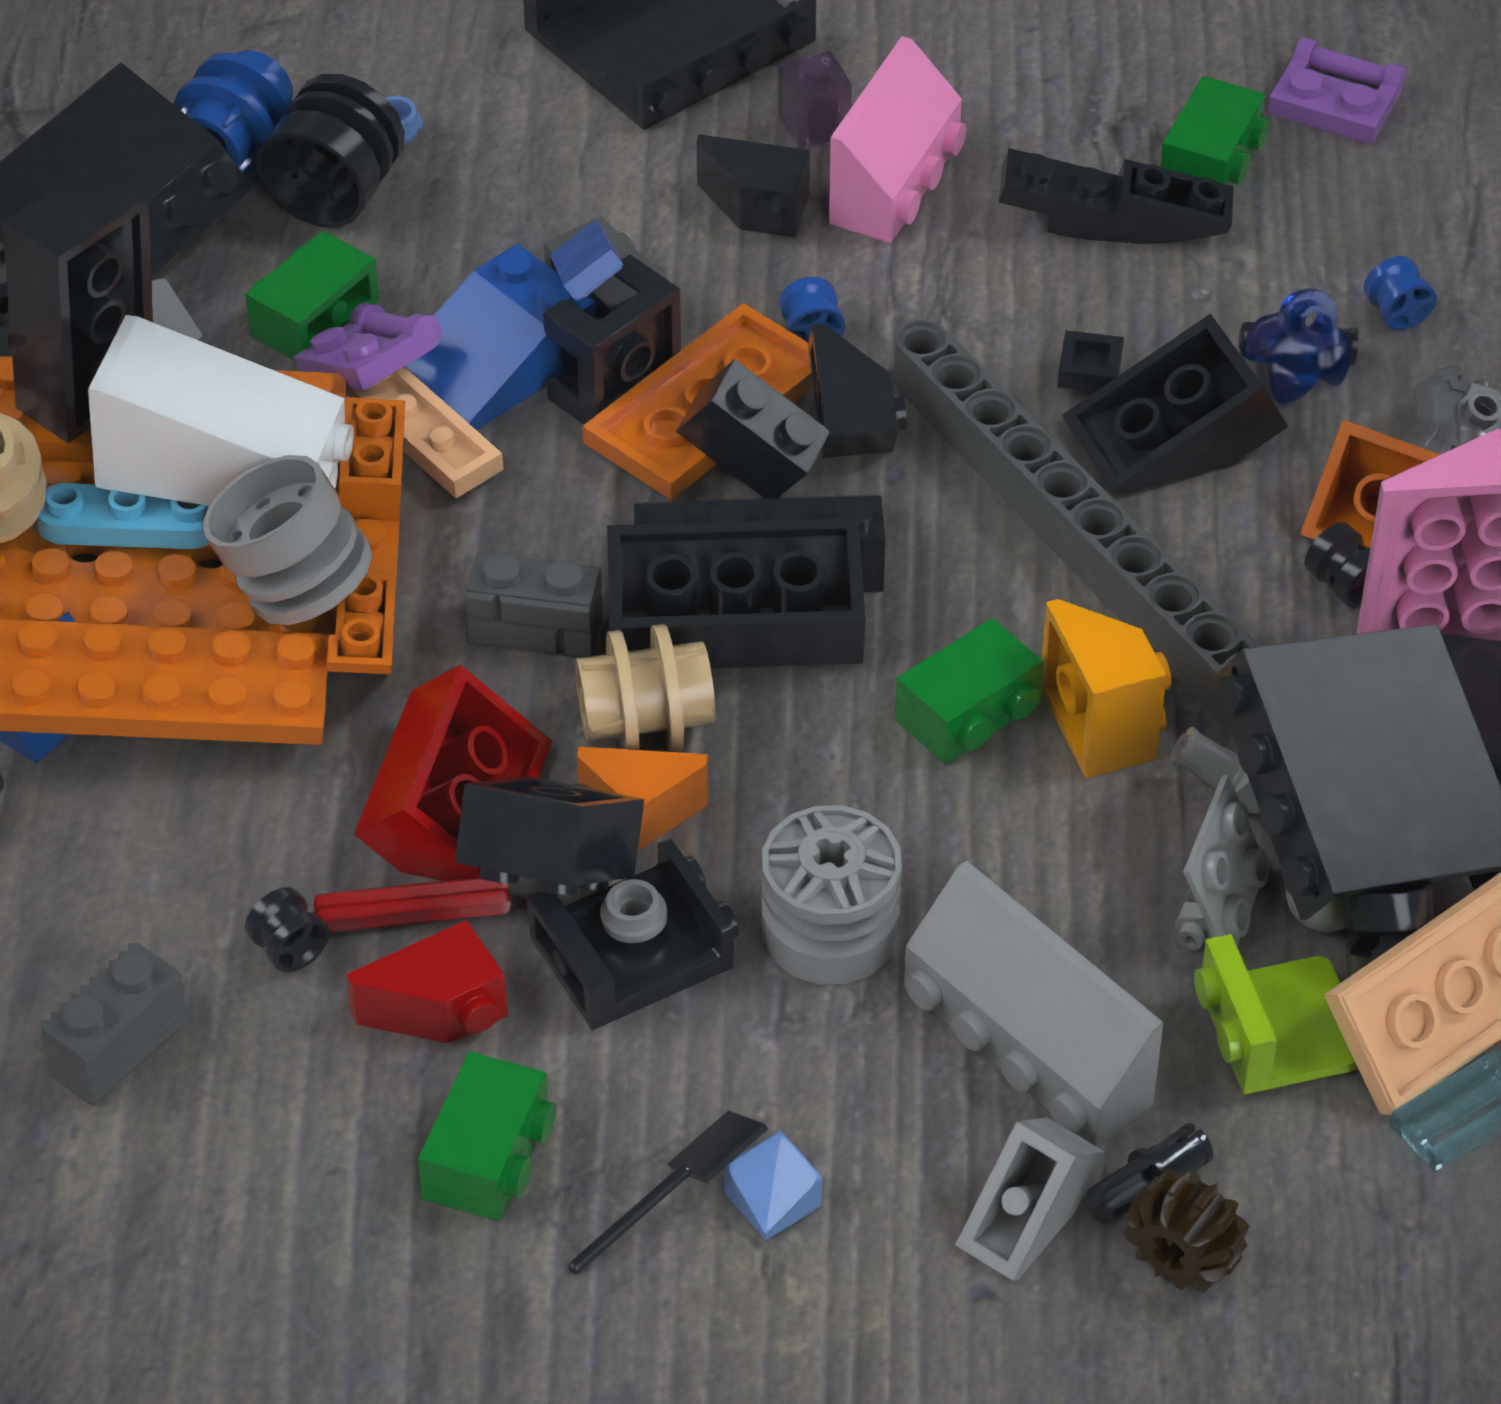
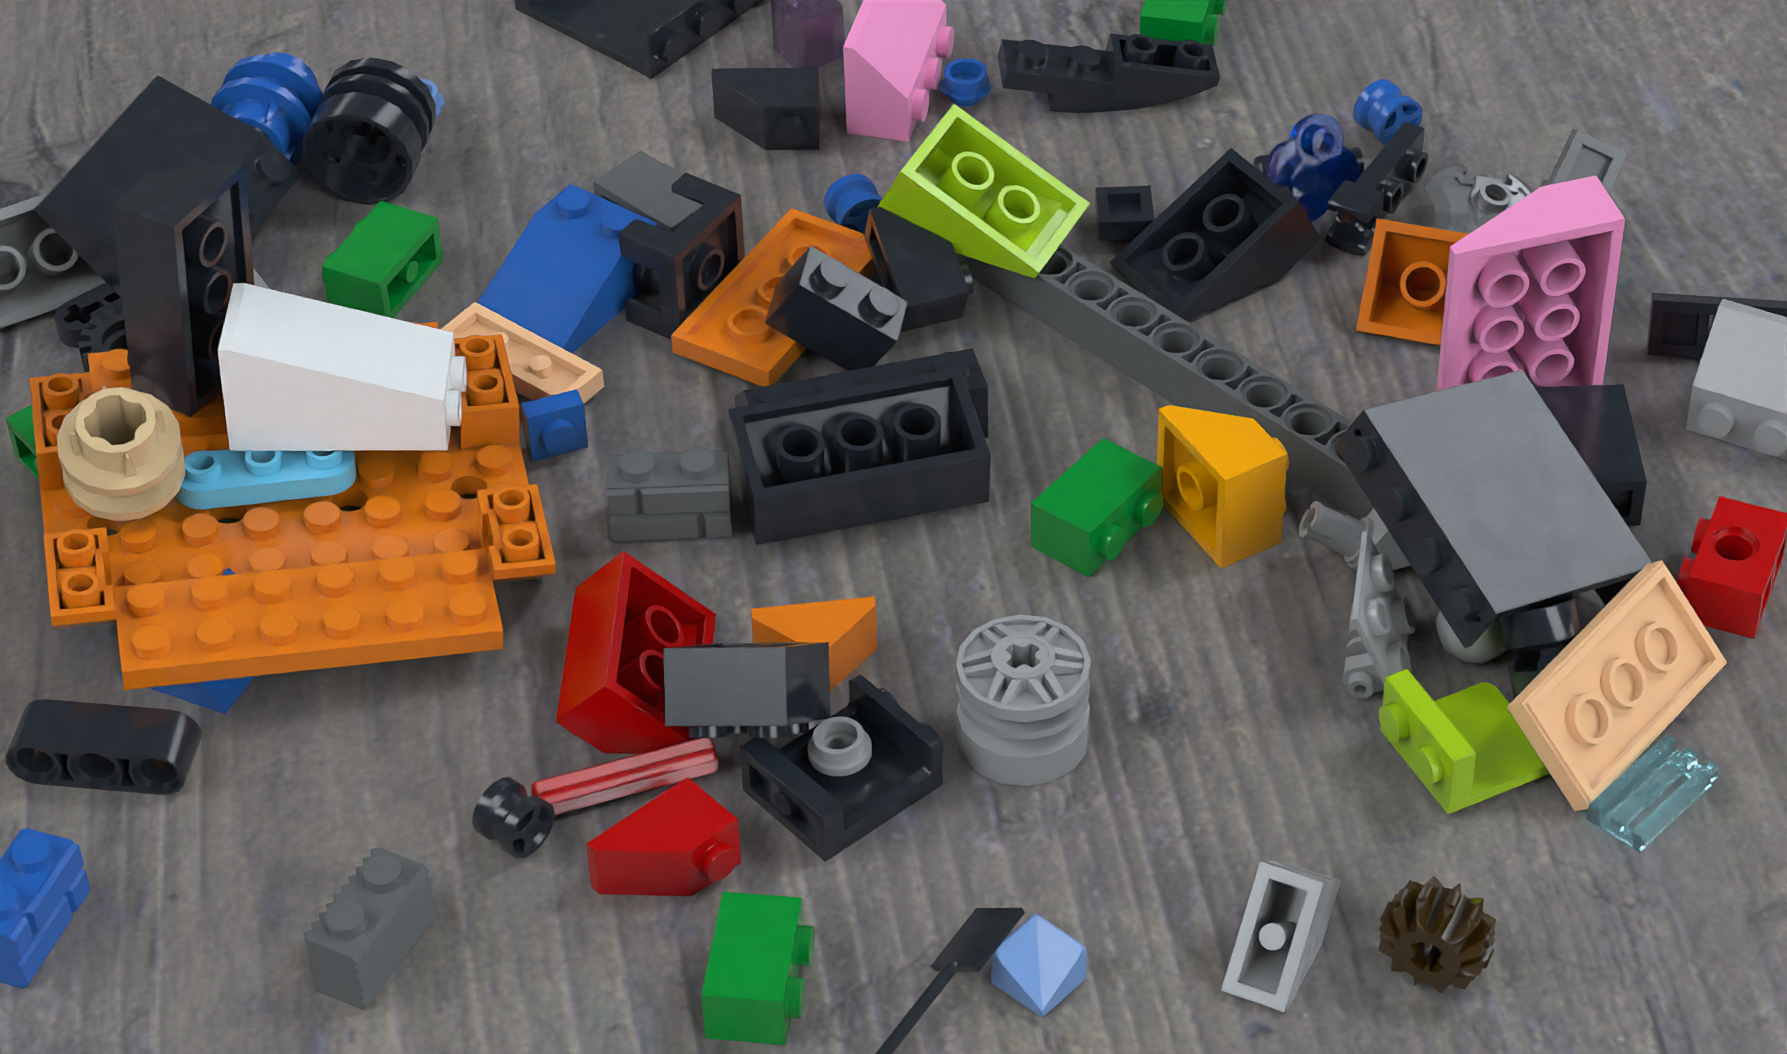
camera: 10 degrees left, 5 degrees down
(287, 539) = (433, 464): light grey wheel -> none
(361, 353) = (455, 294): medium lavender plate -> none
(439, 506) = (554, 425): none -> blue plate
(586, 261) = (645, 185): blue tile -> none
(645, 690) = (799, 550): tan piece -> none
(935, 329) = (984, 196): none -> lime slope
(964, 186) = (965, 82): none -> blue plate
(1034, 1007) = (1240, 763): light grey slope -> none
(1177, 1152) = (1364, 911): black axle -> none
(1340, 559) = (1407, 345): black wheel -> none
(1364, 378) = (1376, 190): none -> black plate

